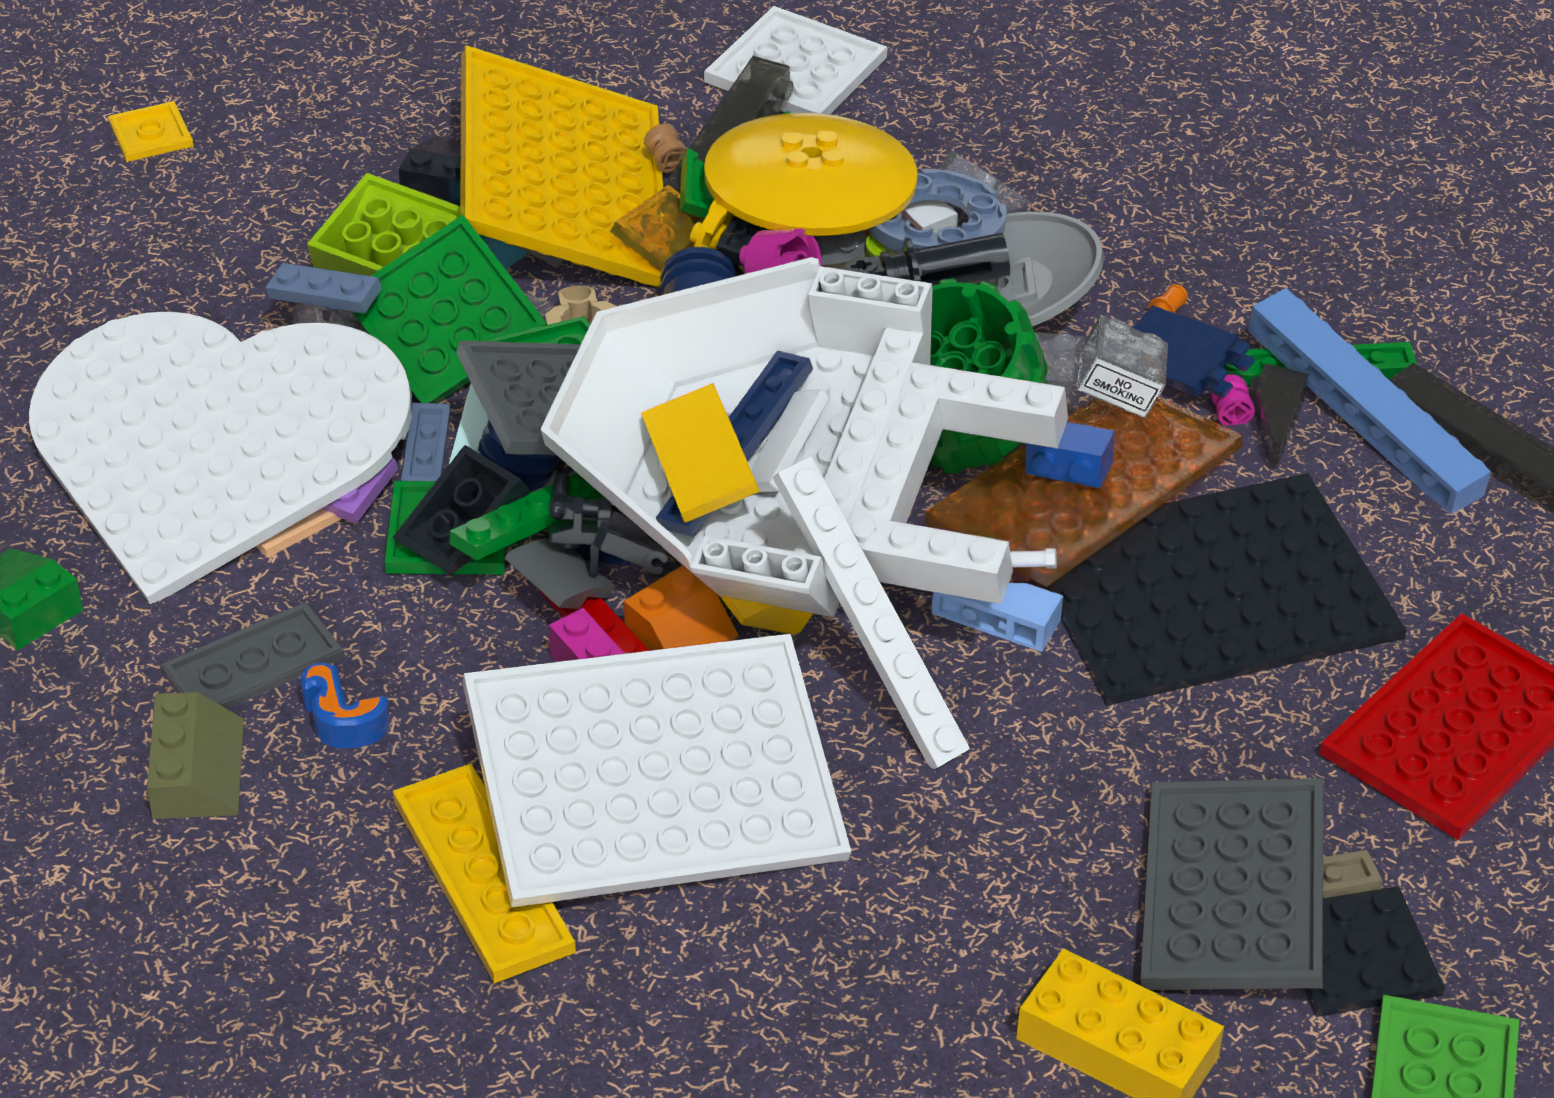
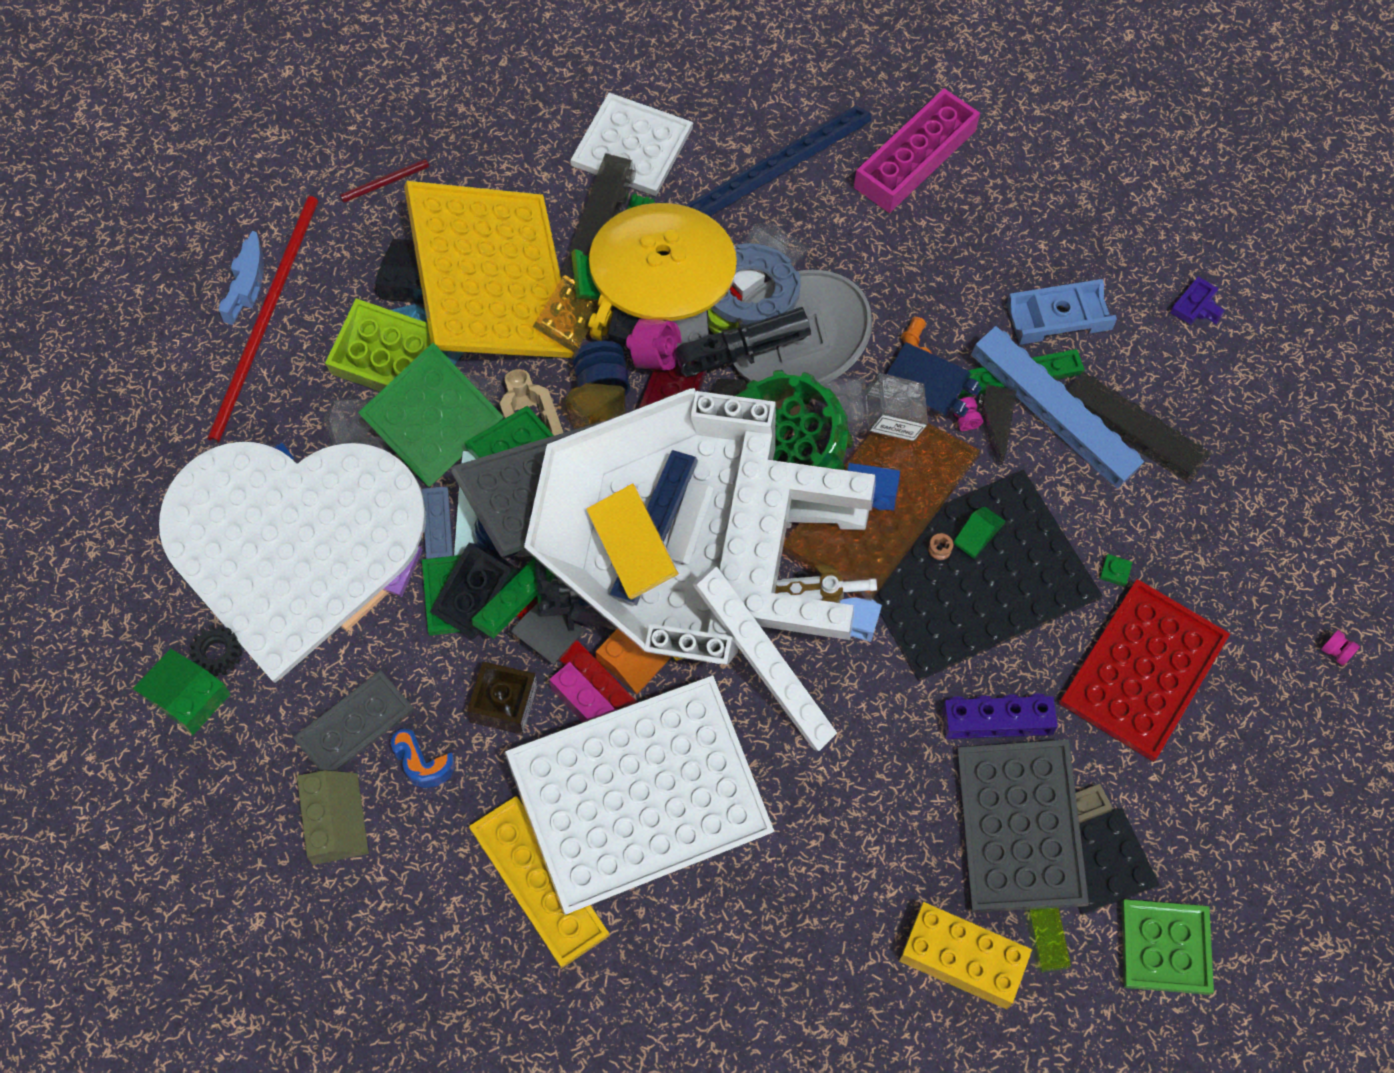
camera: 10 degrees left, 20 degrees up
(78, 537) = (210, 637): none -> black tyre
(150, 131) = (192, 258): yellow tile -> none
(222, 157) = (248, 279): none -> medium blue slope
(237, 199) = (262, 320): none -> red piece
(323, 287) = (345, 409): sand blue plate -> none
(417, 79) = (385, 180): none -> dark red bar
(473, 637) = (502, 697): none -> dark brown brick
(665, 146) = (557, 239): medium nougat wheel -> none
(1010, 100) = (781, 161): none -> dark blue plate
(1027, 478) = (814, 512): none -> white slope
(1164, 540) = (946, 551): none -> nougat bush
(1205, 102) = (916, 150): none -> dark pink brick
(1219, 751) = (999, 716): none -> dark purple brick
(1224, 528) = (978, 531): none -> green slope
(1258, 1033) = (1050, 939): none -> clear neon green plate
(1360, 295) = (1036, 313): none -> medium blue piece
(1432, 605) = (1116, 570): none -> green plate

